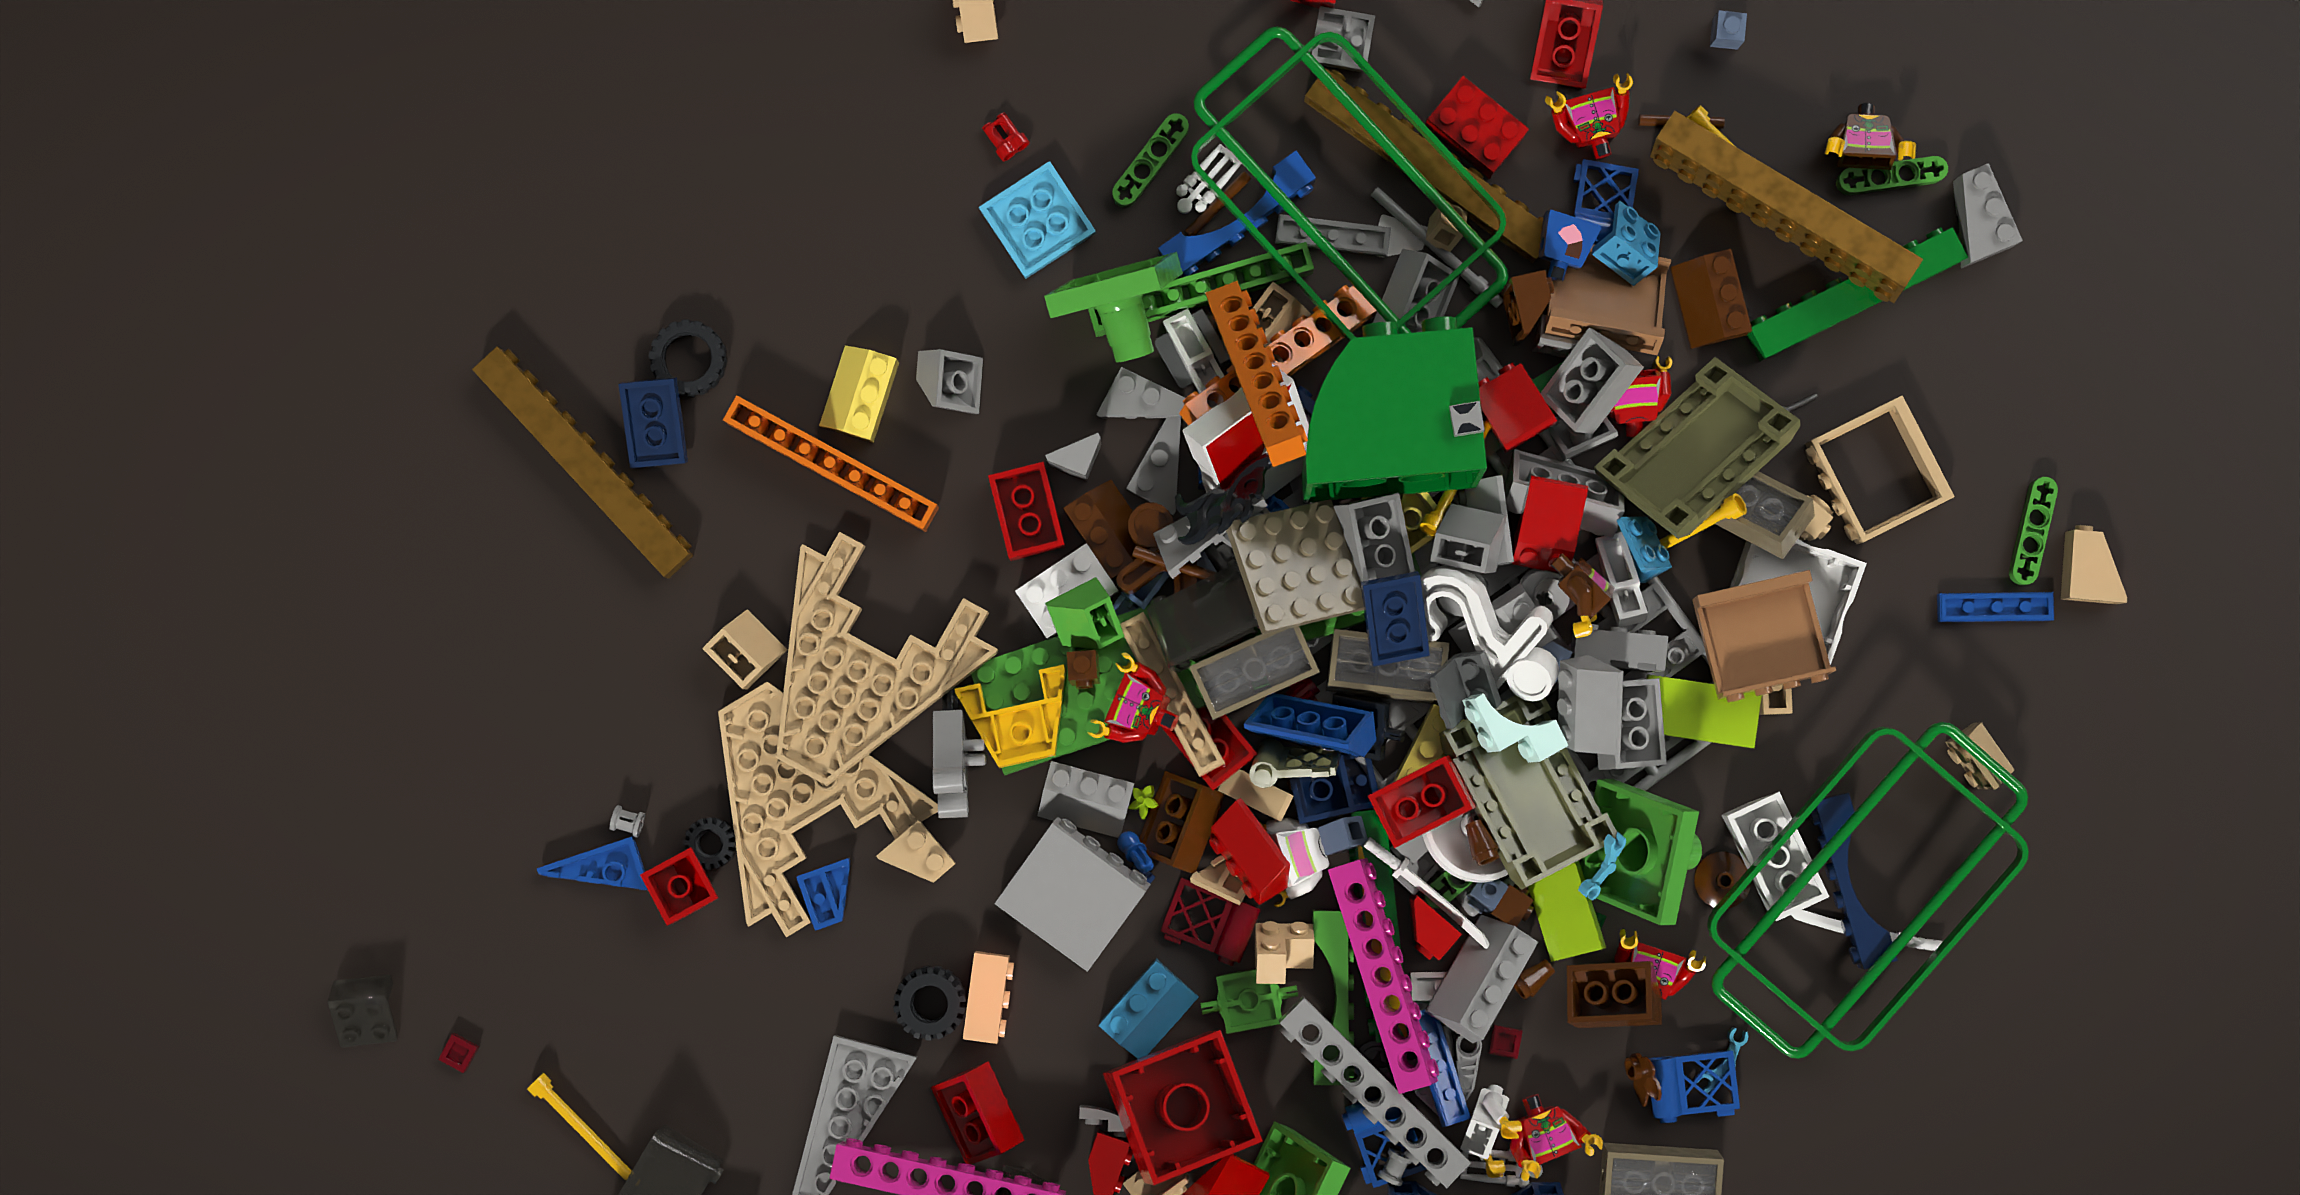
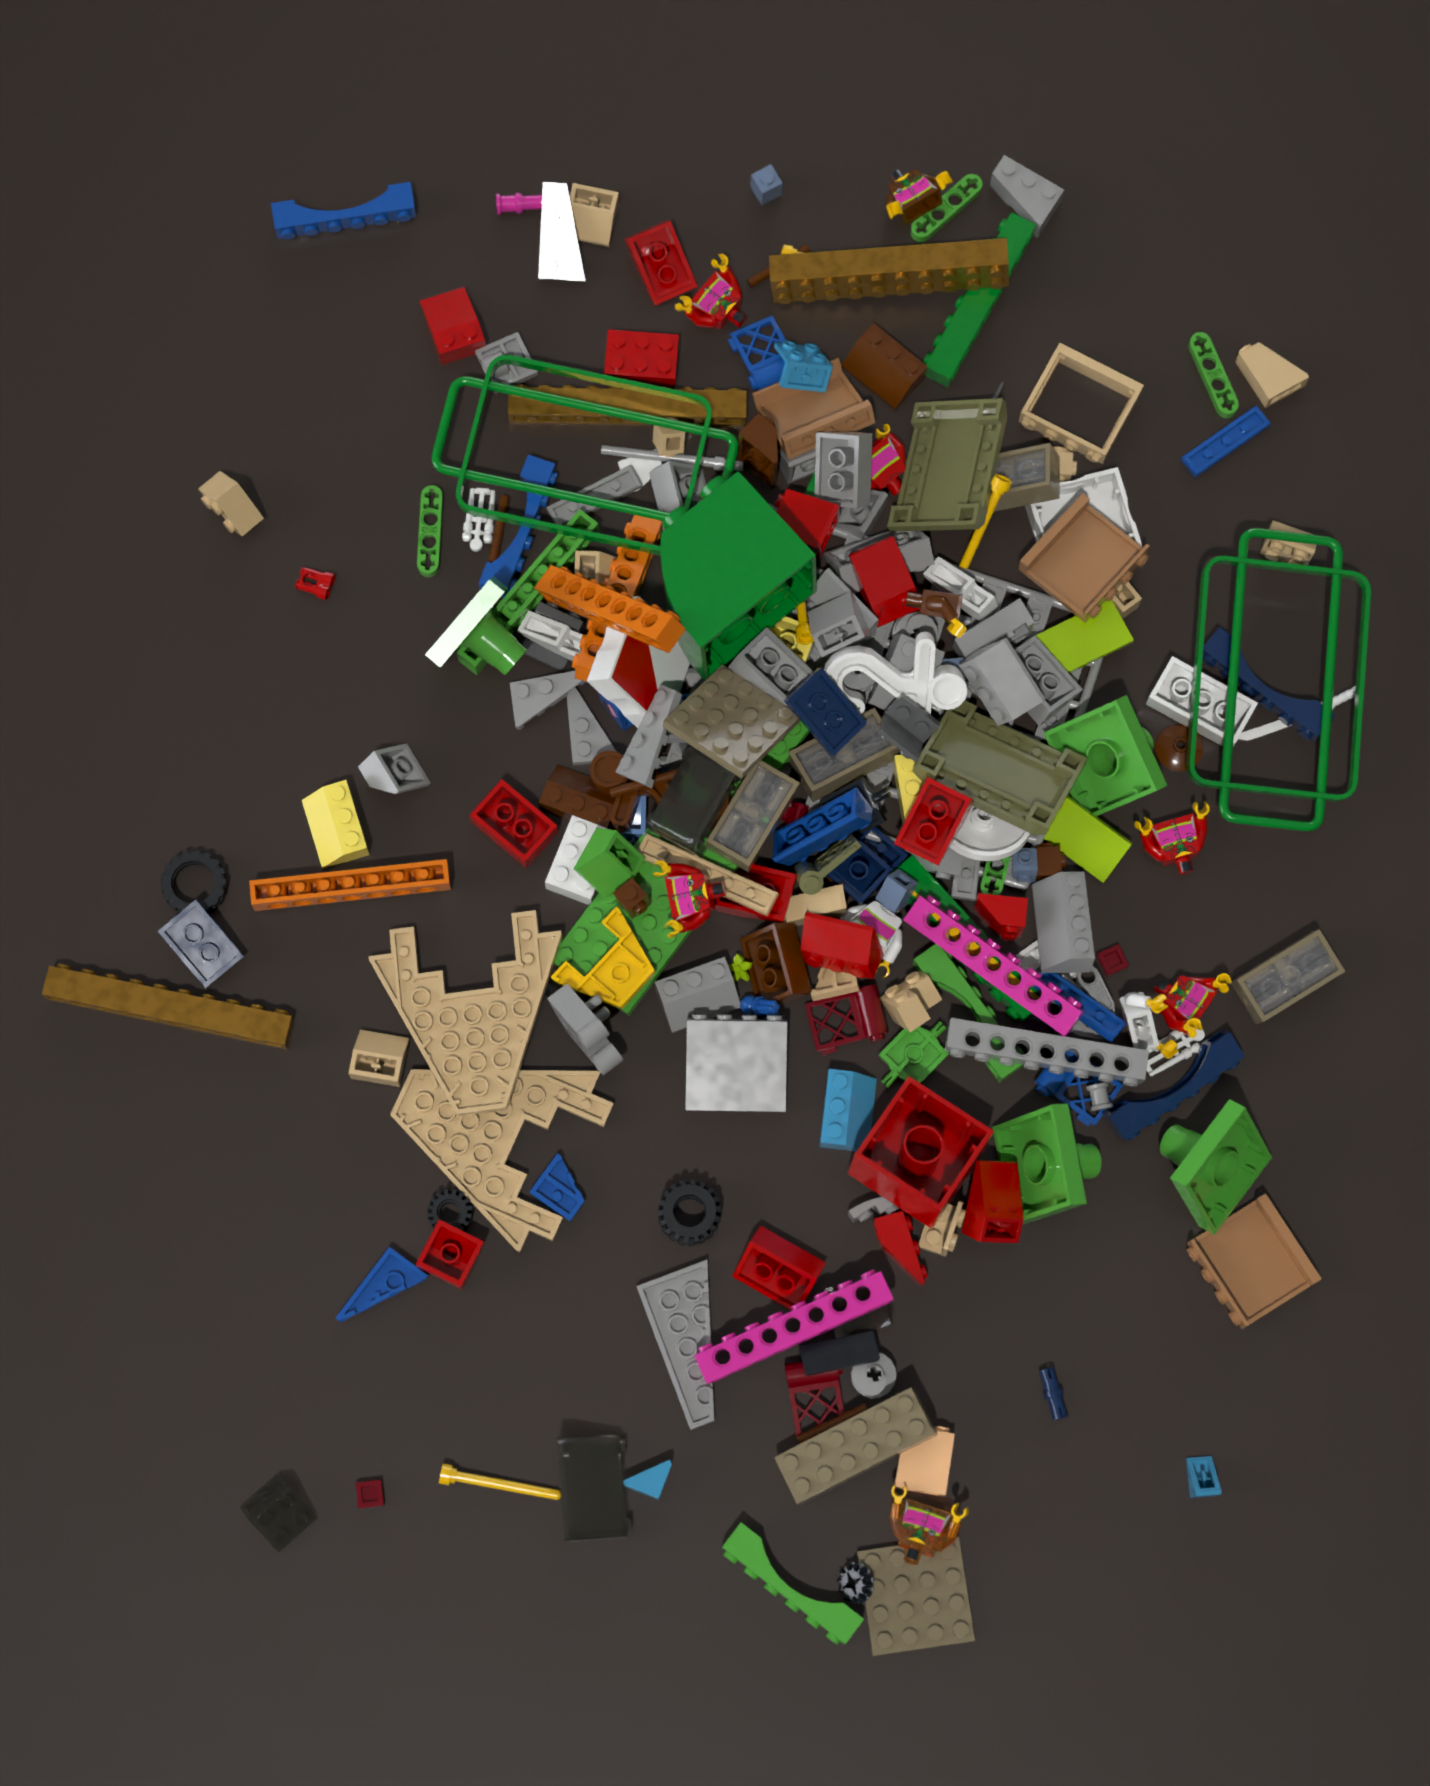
camera: 40 degrees left, 10 degrees down
(618, 817) = (378, 1238): light grey bush -> none
(918, 853) = (606, 1113): tan wing -> none
(988, 997) = (727, 1181): light nougat brick -> none
(1037, 220) = (378, 623): medium azure plate -> none
(1076, 458) = (522, 763): light grey slope -> none
(1223, 505) = (653, 711): black piece -> none
(1402, 869) = (955, 883): white sword -> none
(1466, 419) = (778, 531): light grey tile -> none
(1481, 843) = (995, 823): reddish brown cone -> none
(1498, 732) = (951, 739): light aqua arch -> none
(1533, 979) = (1100, 903): reddish brown cone -> none
(1565, 242) = (758, 390): blue torso -> none
(1613, 847) = (1087, 766): medium azure piece -> none
(1613, 995) = (1162, 871): reddish brown slope -> none
(1642, 1073) = (1222, 913): reddish brown plate -> none
(1645, 548) = (967, 559): dark azure bracket -> none
(1671, 1079) = (1247, 912): blue piece -> none
(1721, 1068) = (1275, 869): medium azure piece -> none

